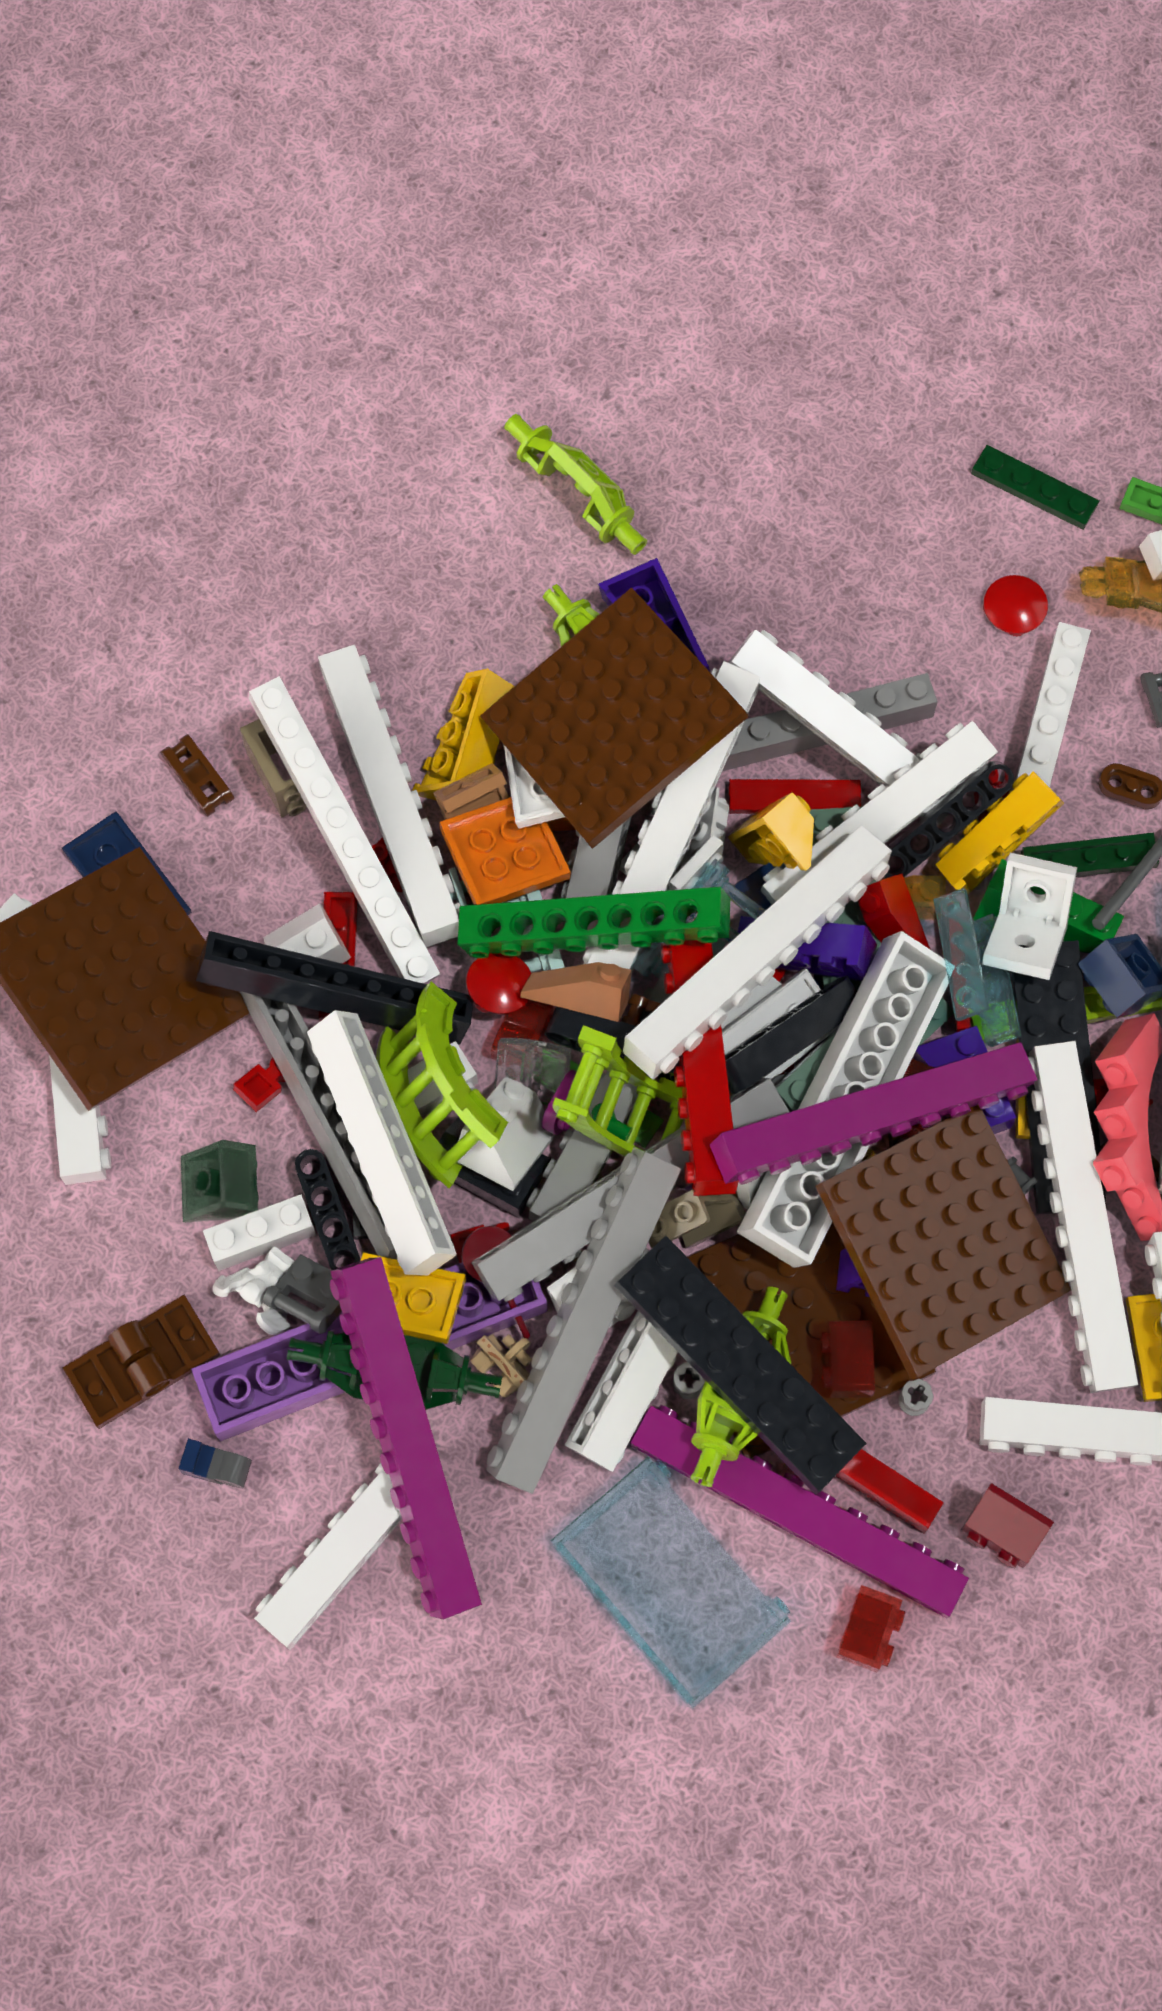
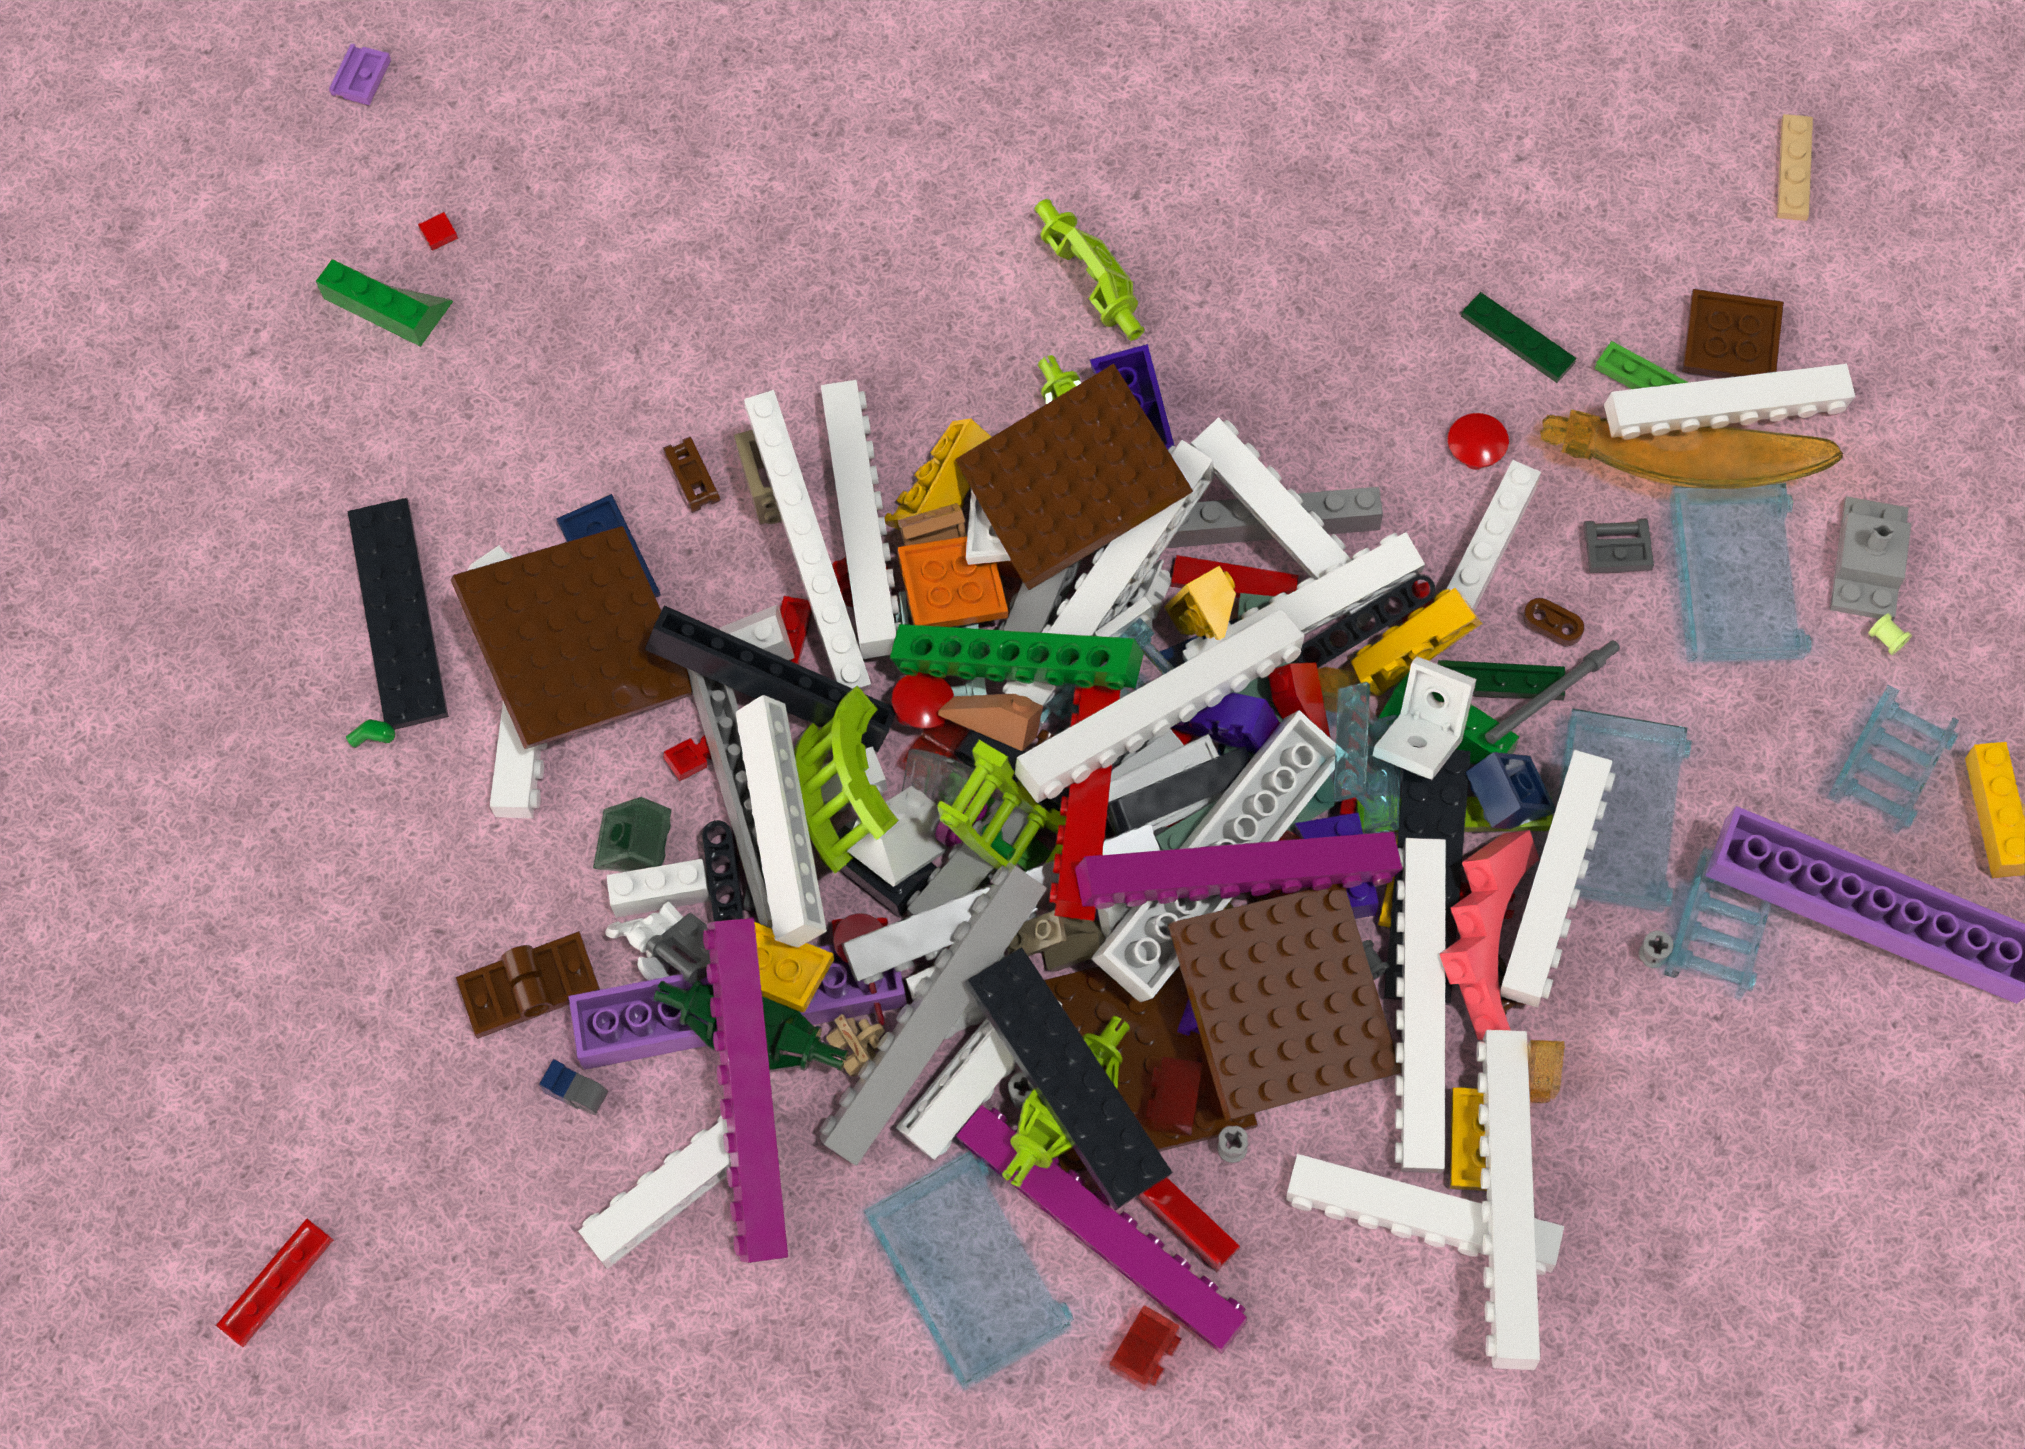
camera: 15 degrees right, 5 degrees down
(1006, 1527) = (1292, 1276): dark red slope -> none

